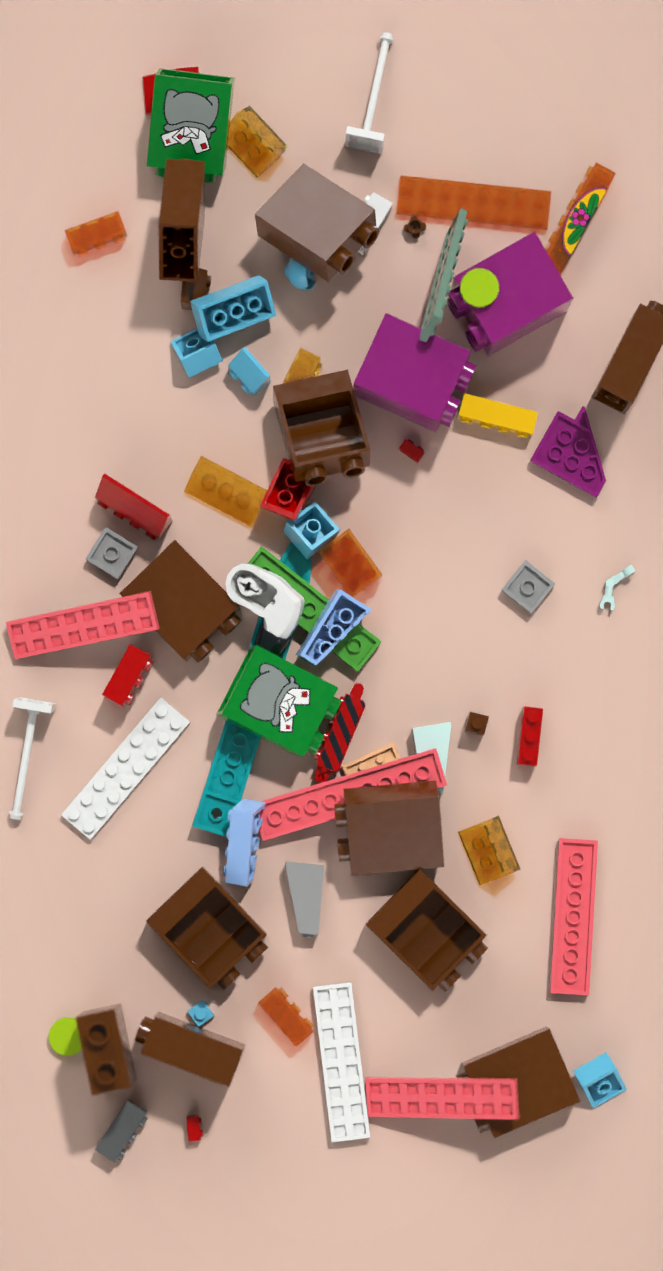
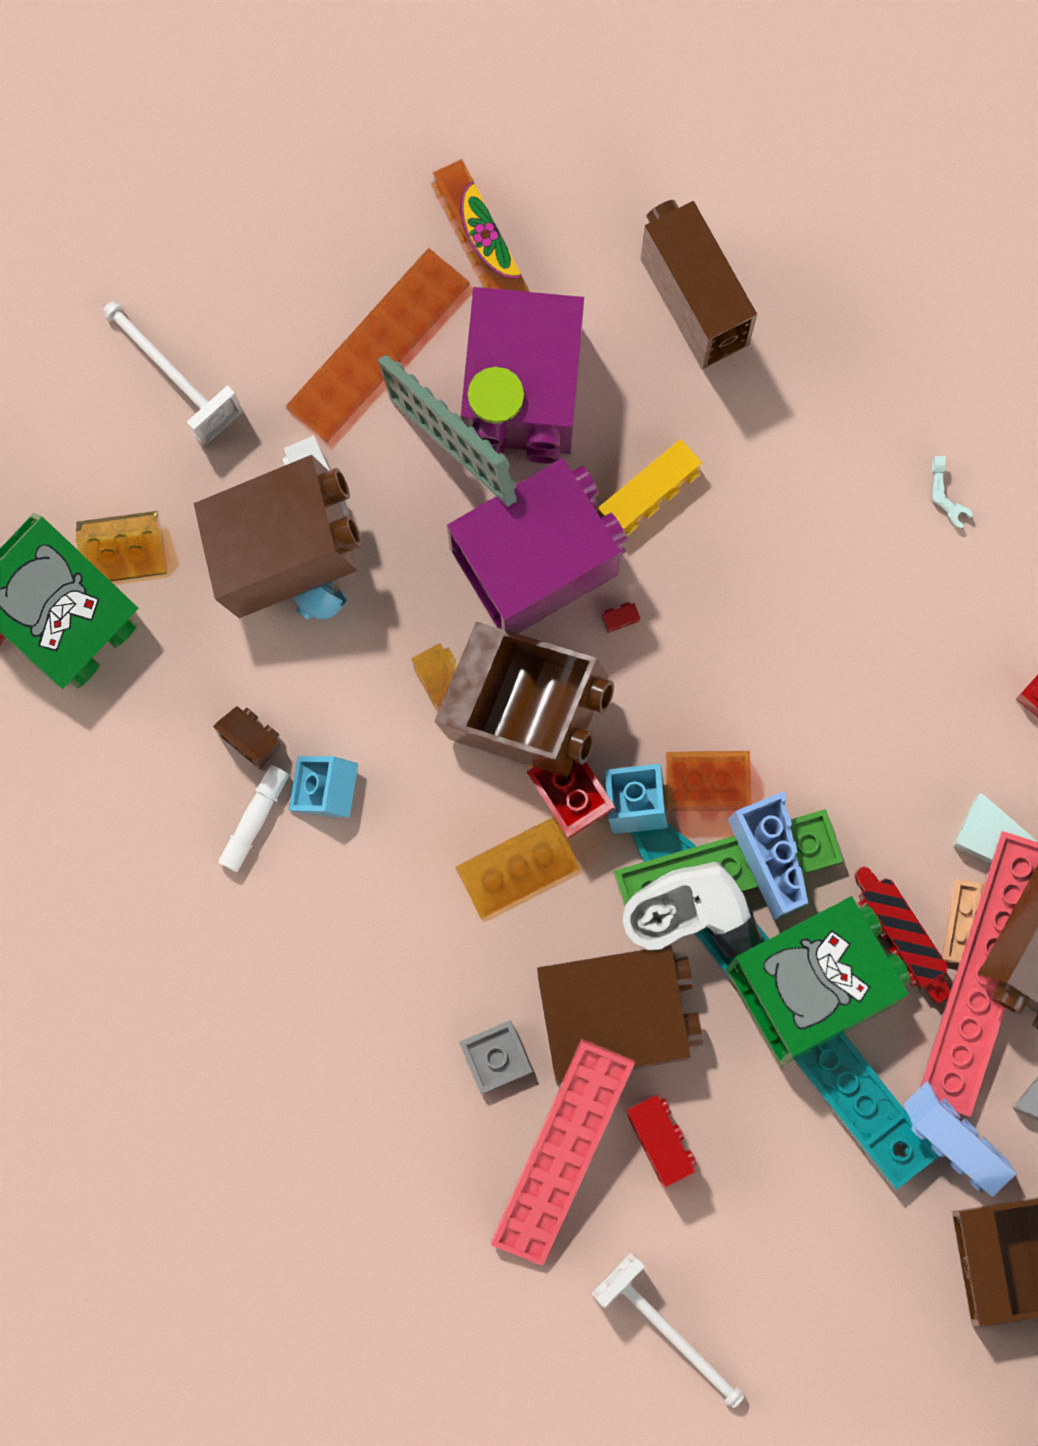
camera: 50 degrees left, 5 degrees down
(96, 233) = (97, 808): clear orange brick -> none
(125, 768) = (768, 1223): white plate -> none
(132, 507) = (460, 992): red slope -> none
(151, 324) = (253, 818): none -> white piece
(181, 220) = (161, 689): reddish brown brick -> none
(233, 308) = (306, 706): medium azure brick -> none
(249, 372) = (394, 741): medium azure slope -> none
(414, 221) = (358, 424): reddish brown plate -> none
(476, 723) = (1001, 764): reddish brown brick -> none
(528, 587) = (878, 593): light grey plate -> none
(571, 453) = (753, 434): magenta wing -> none

